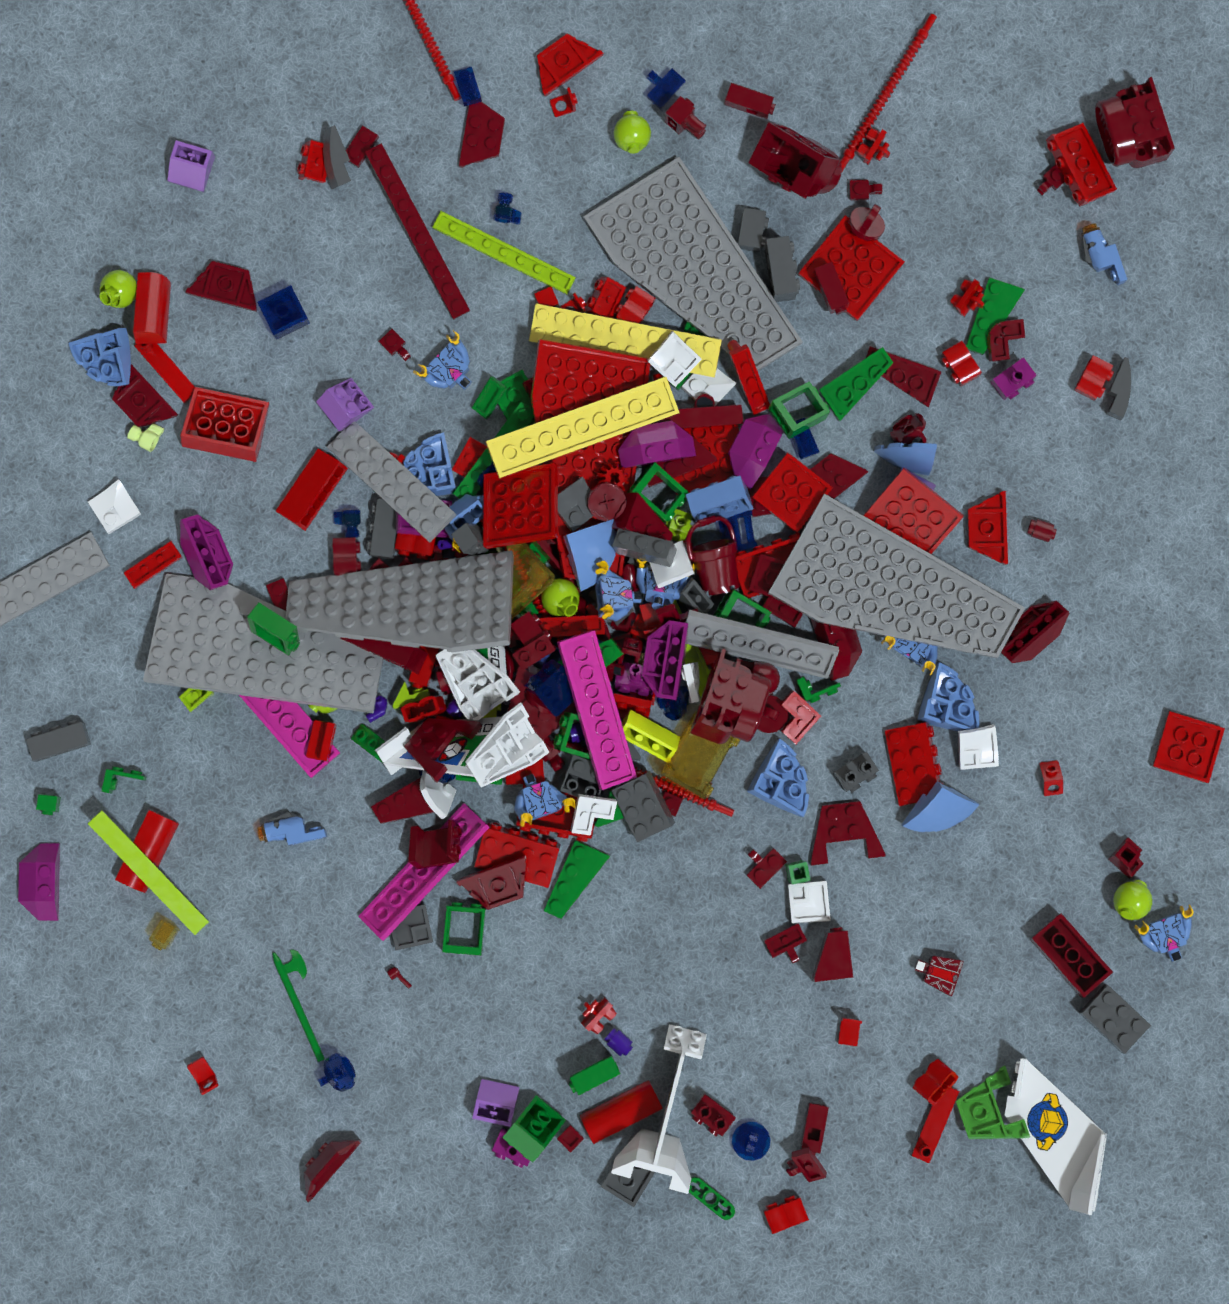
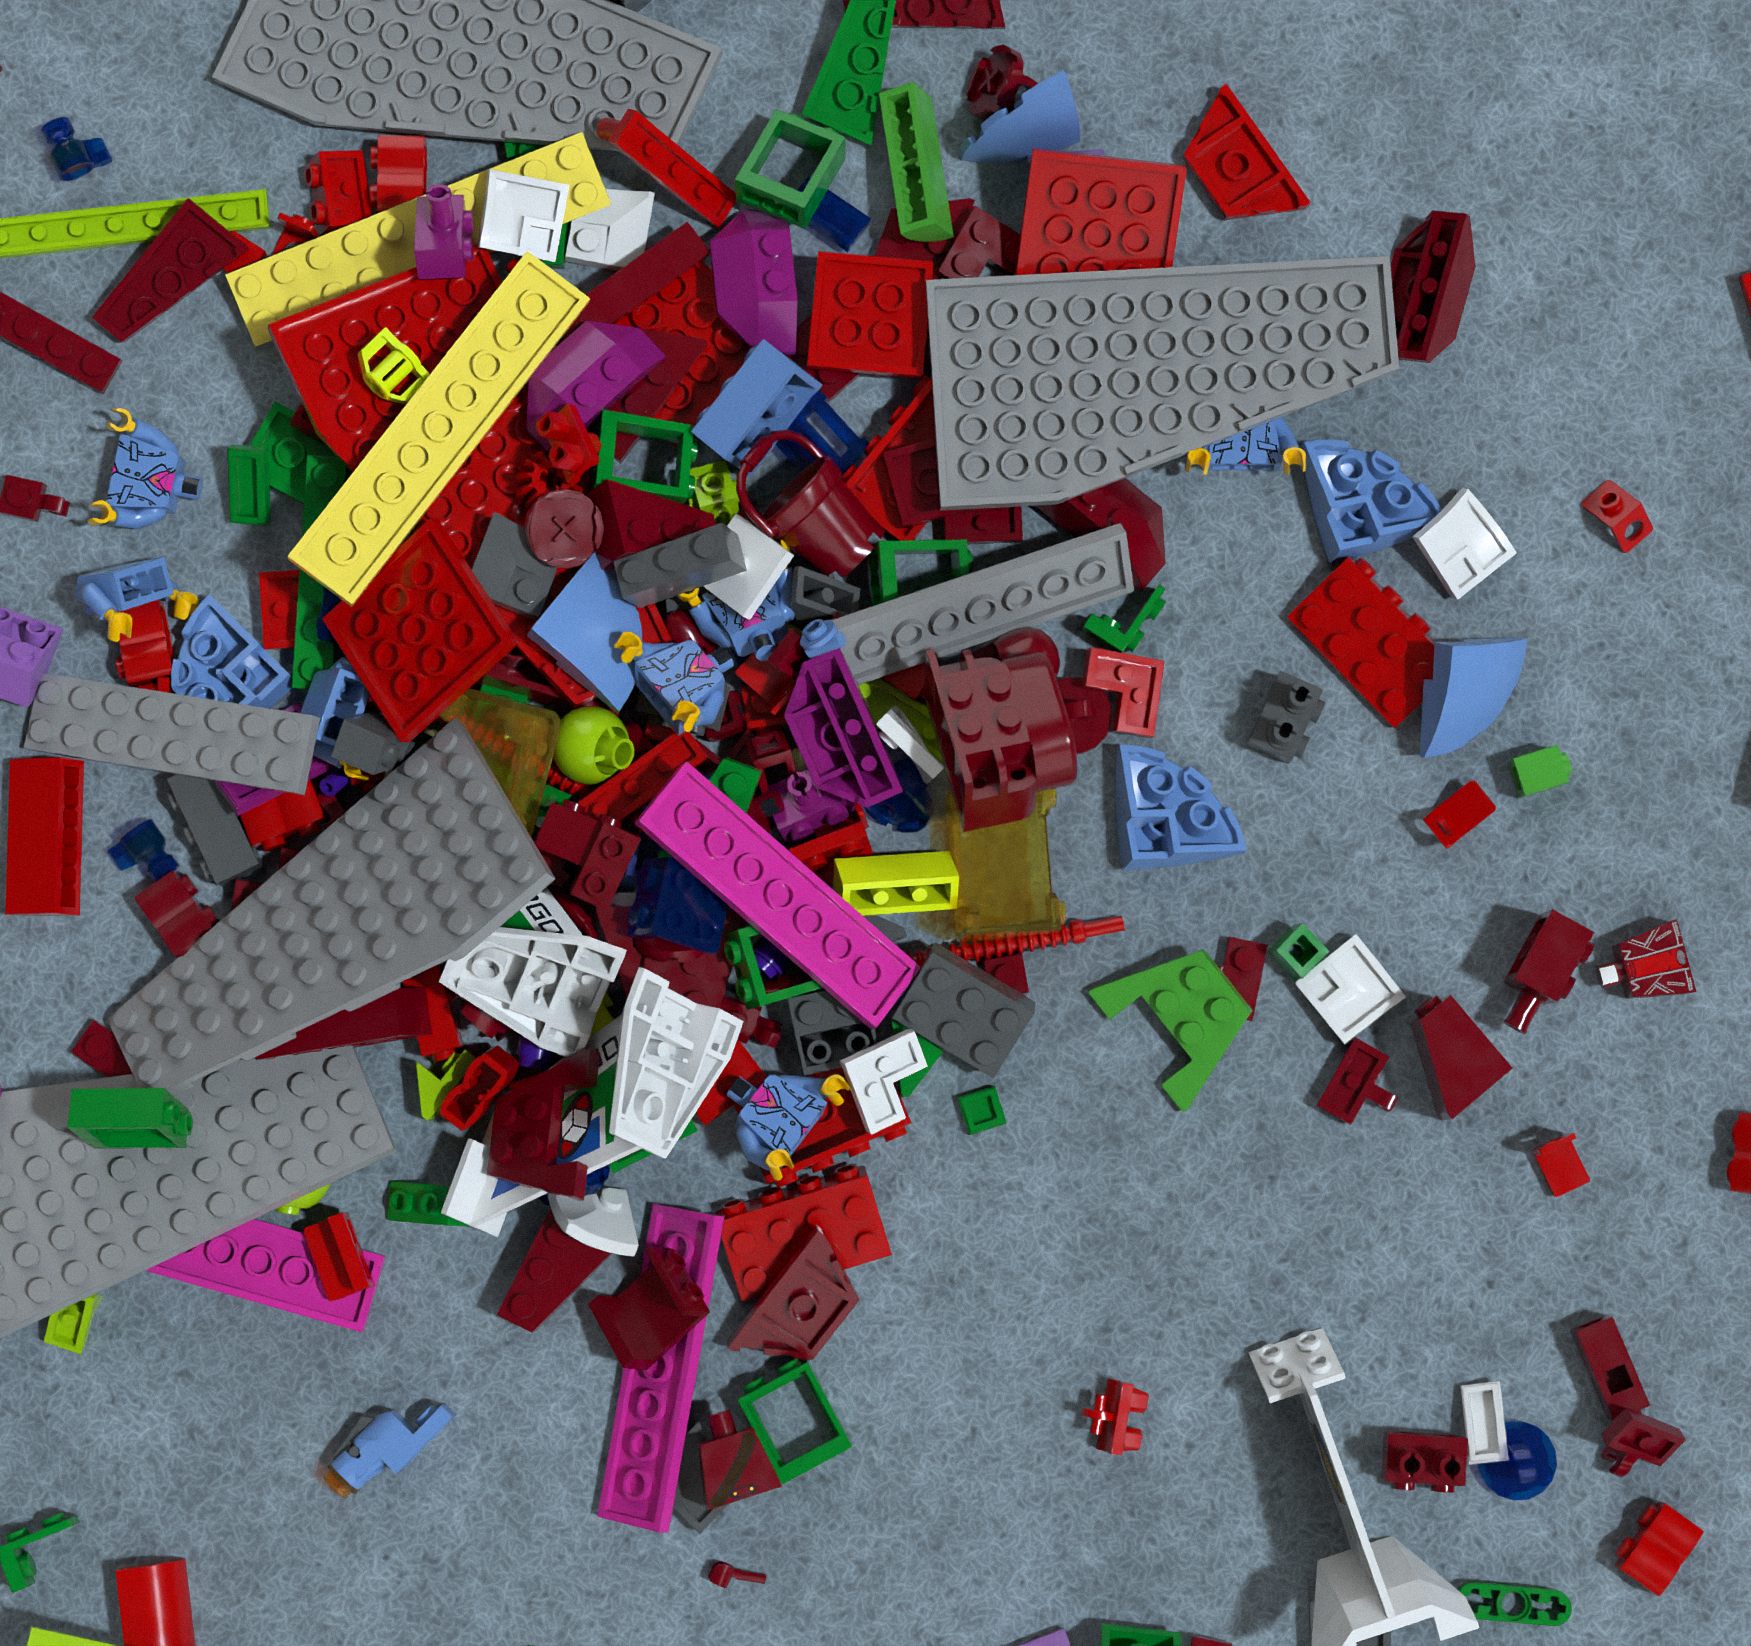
camera: 30 degrees left, 0 degrees up
(380, 709) = (405, 1138): dark purple arm -> none
(404, 435) = (149, 650): none -> red brick
(411, 408) = (127, 587): none -> medium blue torso
(428, 930) = (733, 1463): none -> dark red torso
(518, 285) = (174, 265): none -> dark red wing
(575, 876) = (924, 1199): green wing -> none
(585, 387) = (399, 354): none -> neon yellow piece
(594, 1075) = (1180, 1525): green window -> none
(618, 1042) = (1183, 1440): dark purple brick -> none
(621, 1112) = (1265, 1557): red brick -> none
(624, 853) = (982, 1110): none -> green tile
(632, 470) = (571, 444): none -> red hips
(635, 347) = (442, 233): none -> magenta brick
(683, 615) = (821, 638): none -> medium blue plate
(704, 400) = (620, 255): black tile -> none
(740, 867) = (1193, 1004): none -> bright green wing
(747, 1116) = (1484, 1422): none -> white tile
(844, 823) = (1319, 820): dark red wing -> none
(853, 441) = (916, 164): none -> bright green brick
(856, 491) = (980, 242): none -> dark red plate
(895, 945) = (1546, 965): none -> dark red brick
(902, 859) = (1460, 813): none -> red bracket
(948, 863) = (1540, 771): none -> bright green brick
(1041, 530) = (1330, 110): dark red brick -> none

